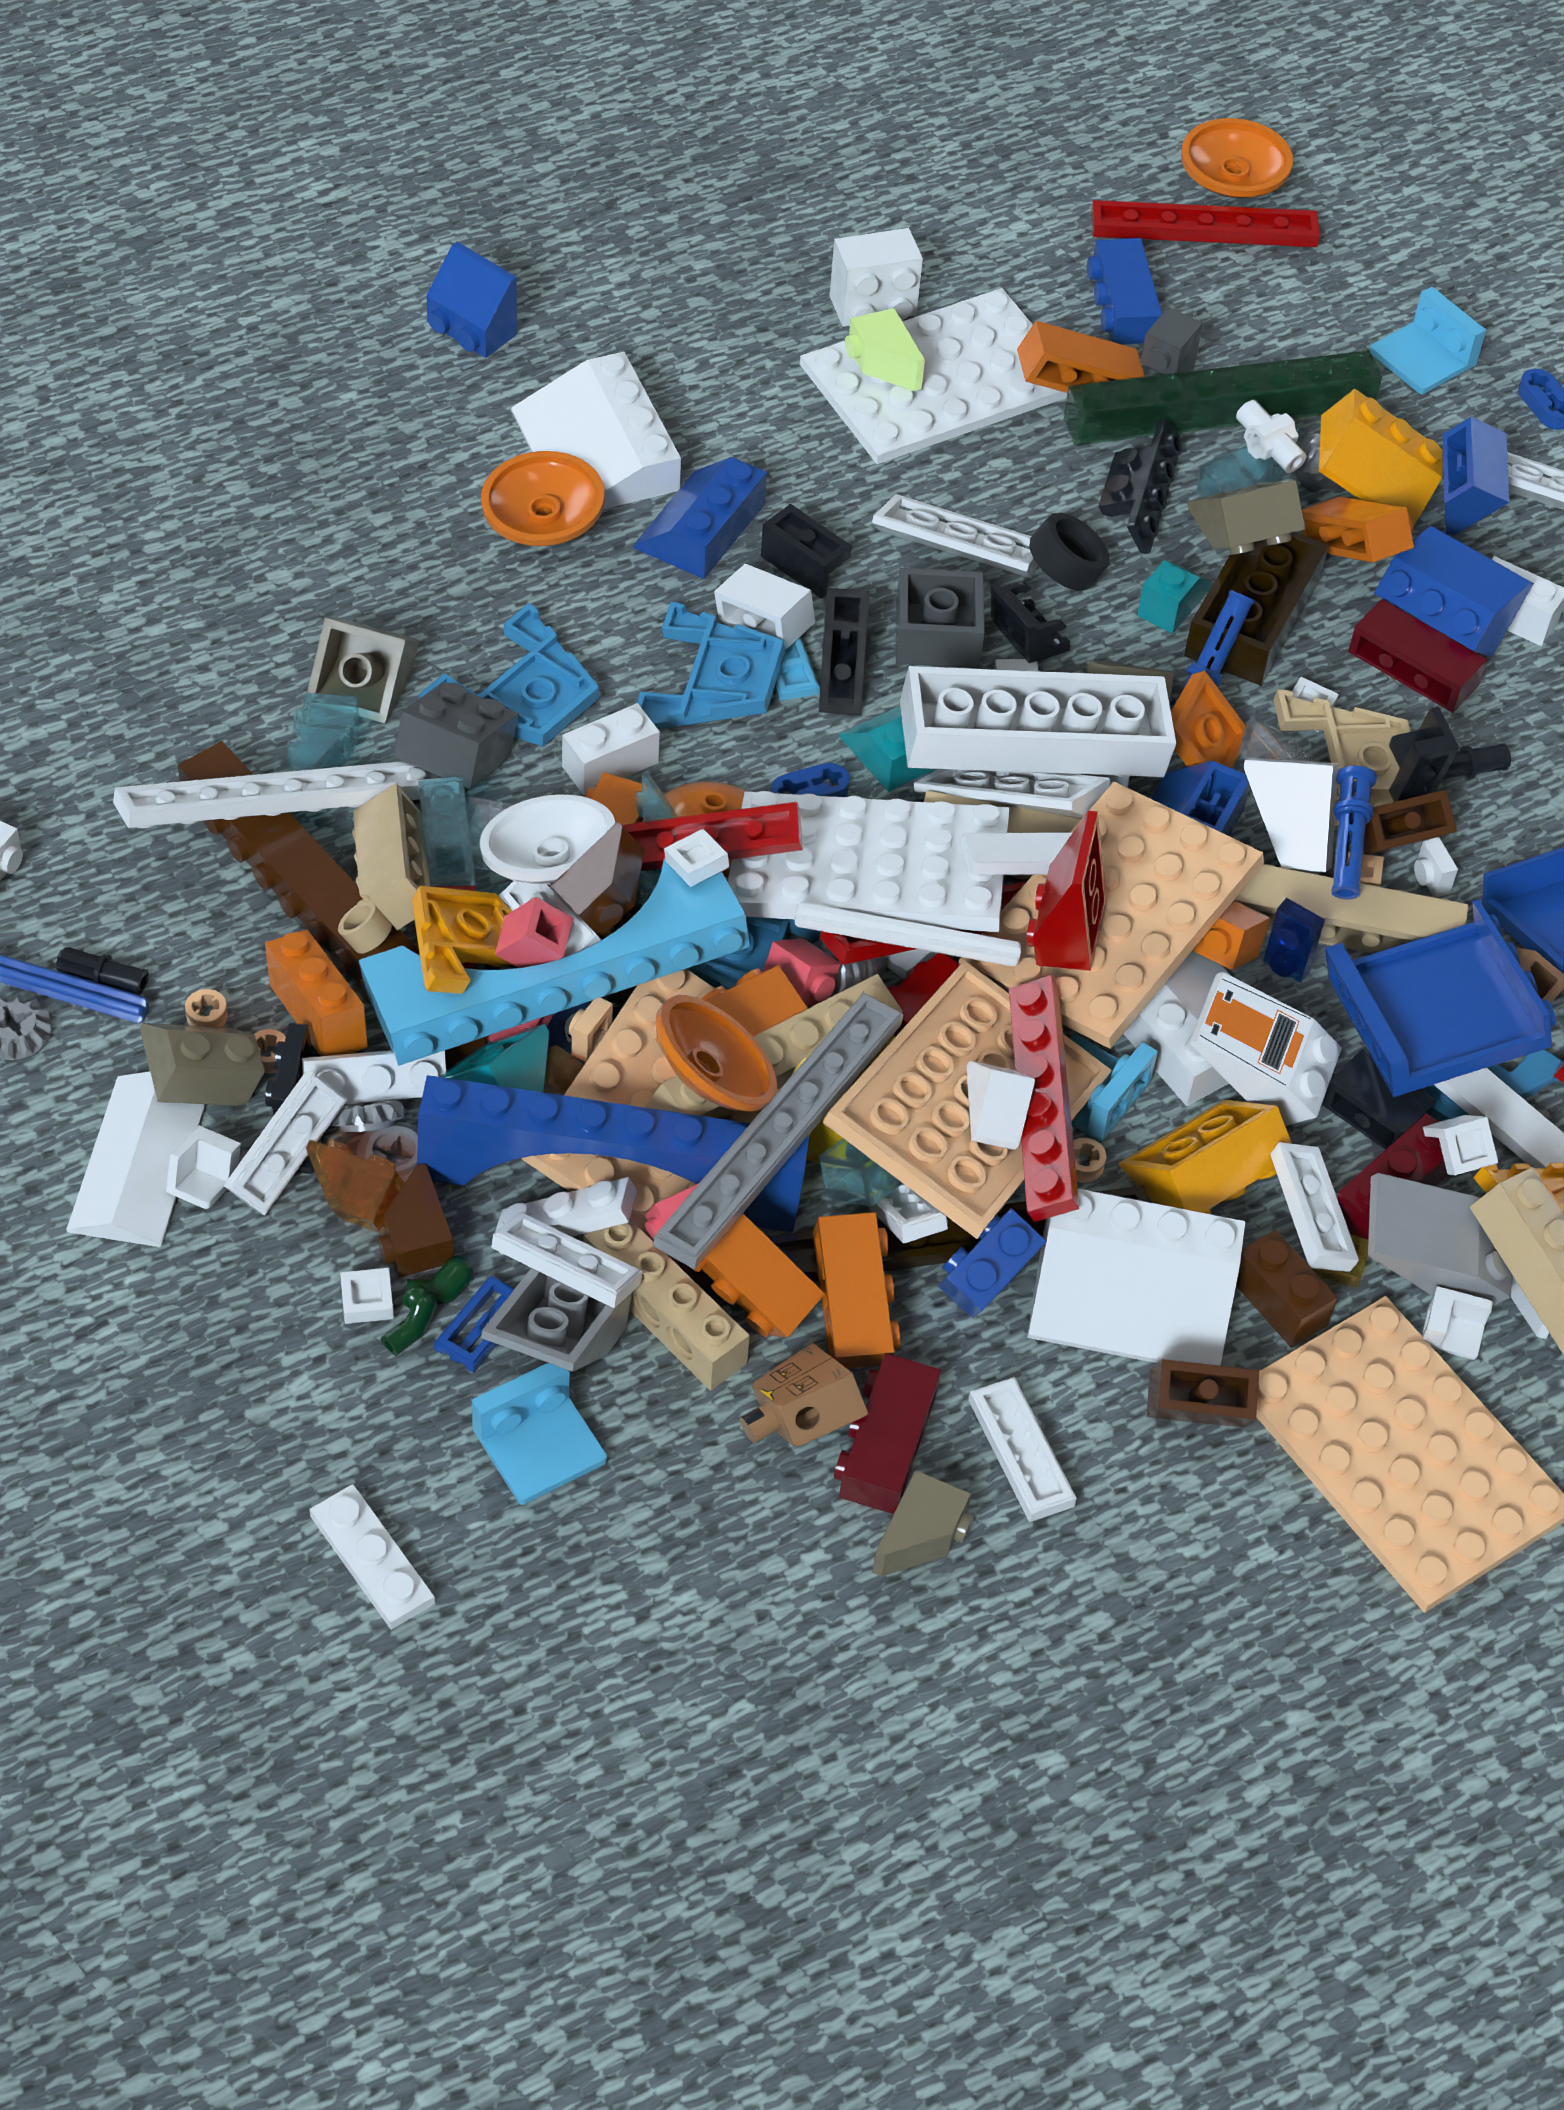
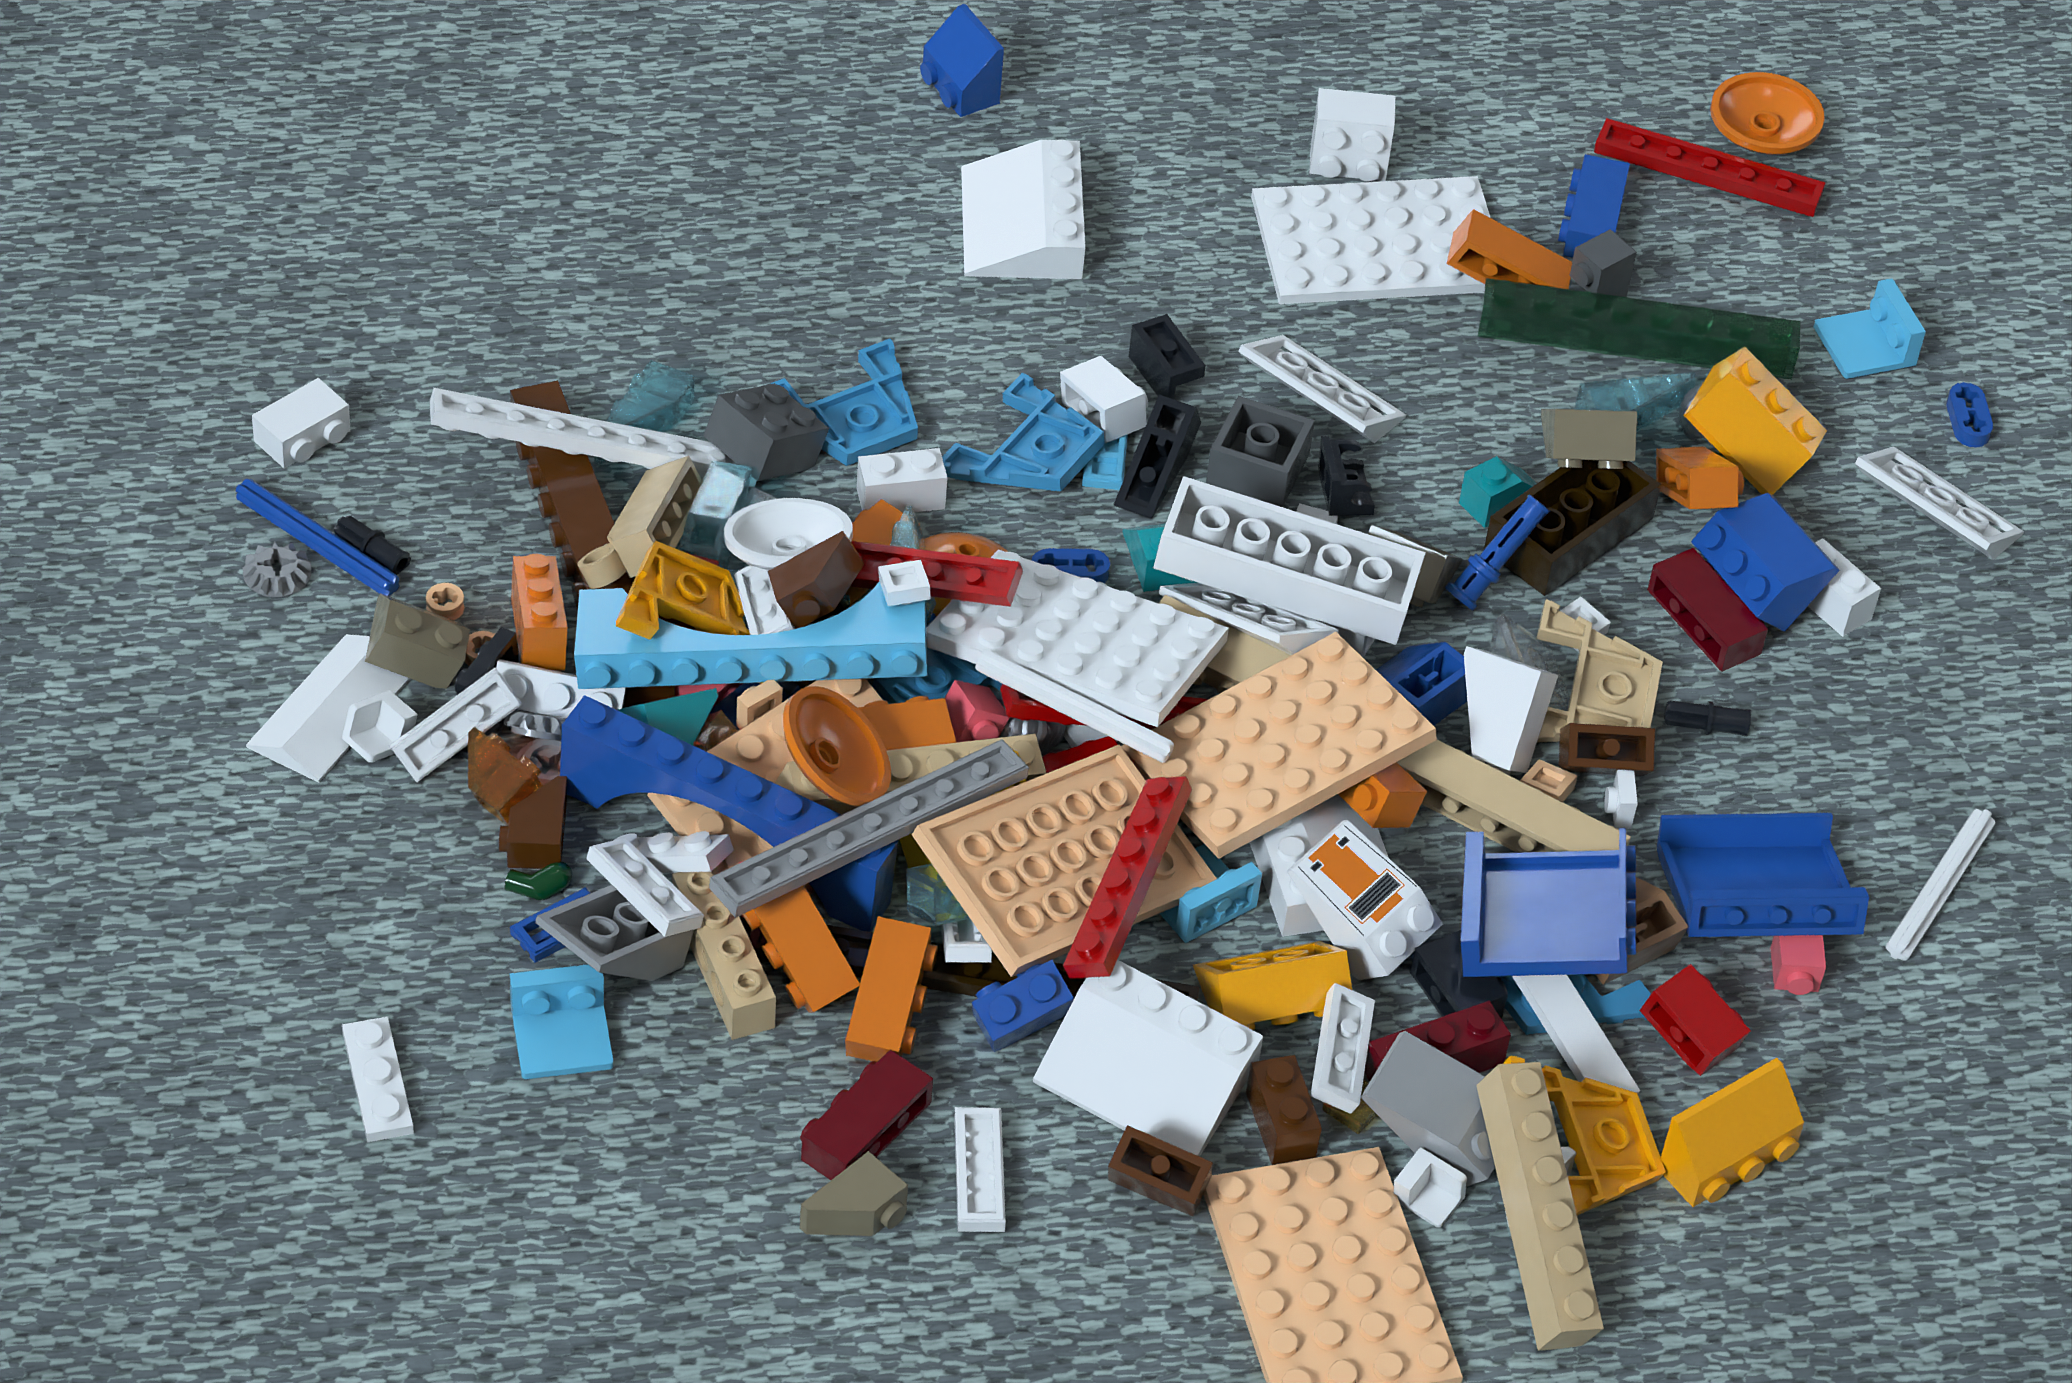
camera: 20 degrees right, 5 degrees down
(363, 664) = (716, 351): dark tan slope -> none
(366, 1295) = (470, 871): white plate -> none
(422, 1307) = (505, 904): dark green arm -> none
(534, 934) = (734, 607): coral brick -> none
(542, 498) = (944, 250): orange dish -> none
(706, 516) = (1092, 308): blue slope -> none
(804, 1399) = (799, 1065): medium nougat torso -> none
(885, 349) = (1326, 200): yellowish green slope -> none
(997, 1104) = (1081, 870): white slope -> none
(1011, 852) = (1218, 668): white tile -> none
(1069, 551) = (1401, 438): black tyre -> none
(1071, 902) = (1231, 717): red slope -> none
(1097, 1159) = (1167, 961): light nougat bush -> none
(1140, 484) = (1522, 387): black bracket -> none
(1206, 724) = (1458, 610): orange plate -> none
(1271, 436) = (1656, 373): white axle -> none
(1293, 940) = (1444, 820): clear blue plate -> none
(1352, 816) = (1549, 722): blue pin -> none
(1422, 757) = (1645, 693): black panel -> none
(1464, 1143) = (1499, 1031): white panel -> none
(1473, 473) = (1836, 457): blue slope -> none

